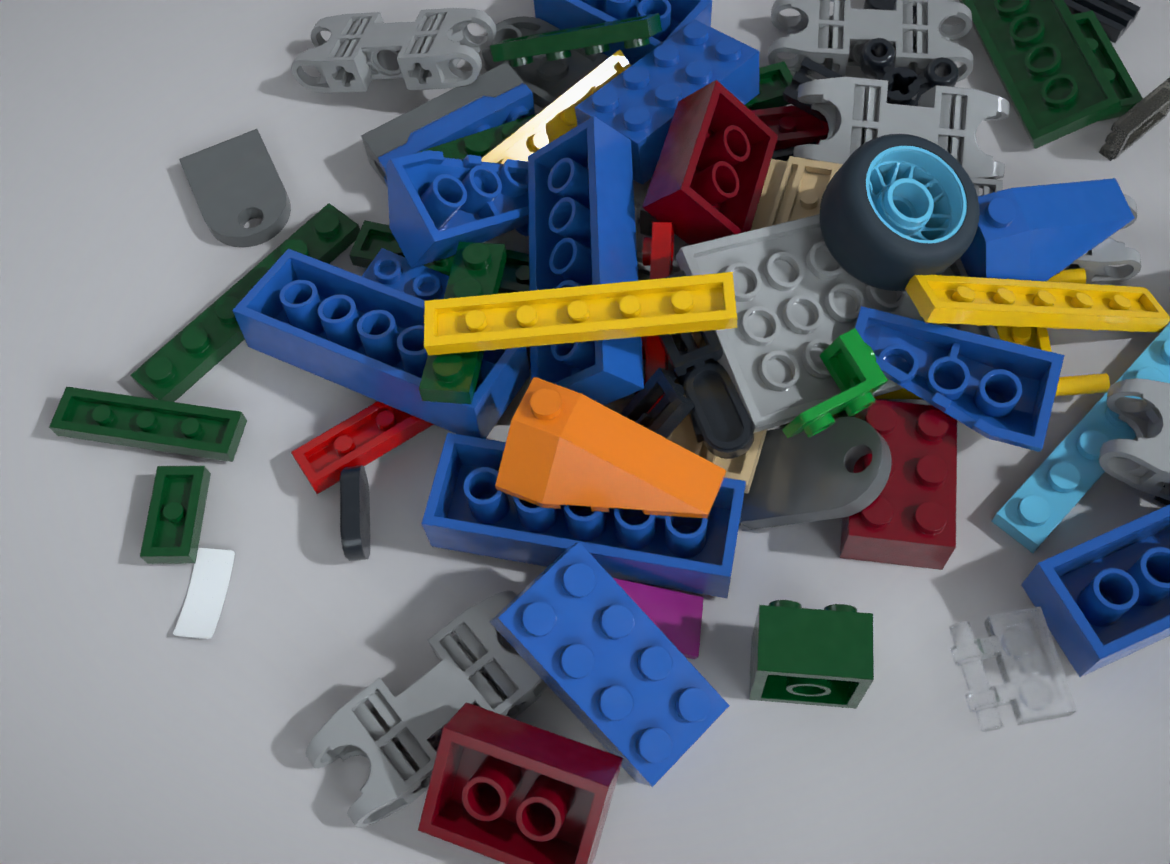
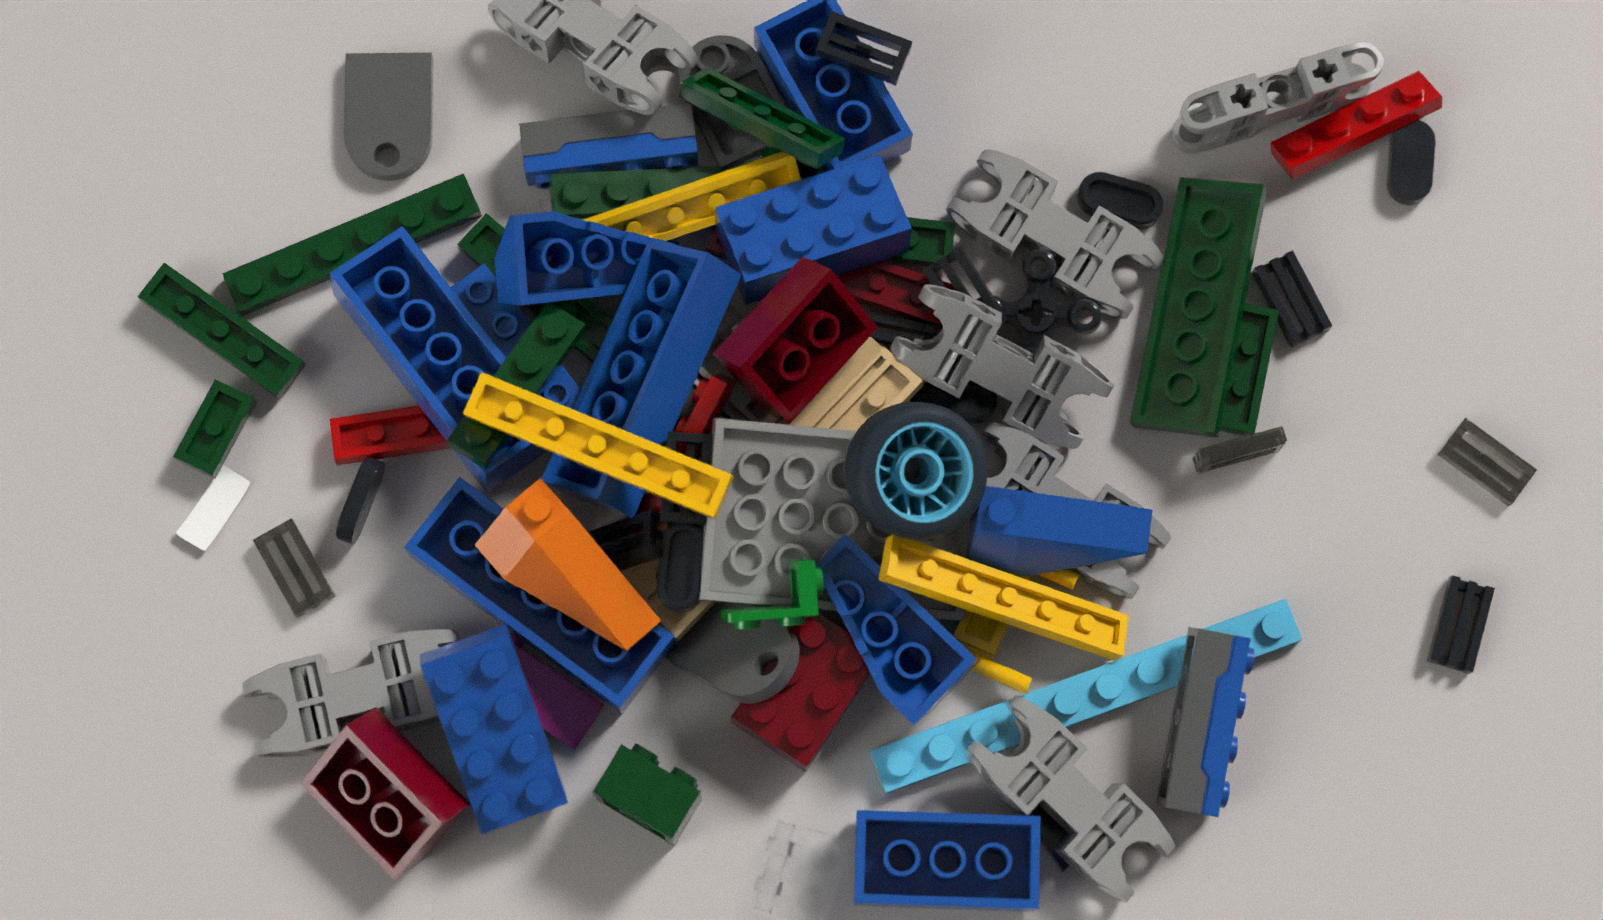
camera: 15 degrees right, 15 degrees up
(346, 635) = (312, 600): none -> clear smoke tile

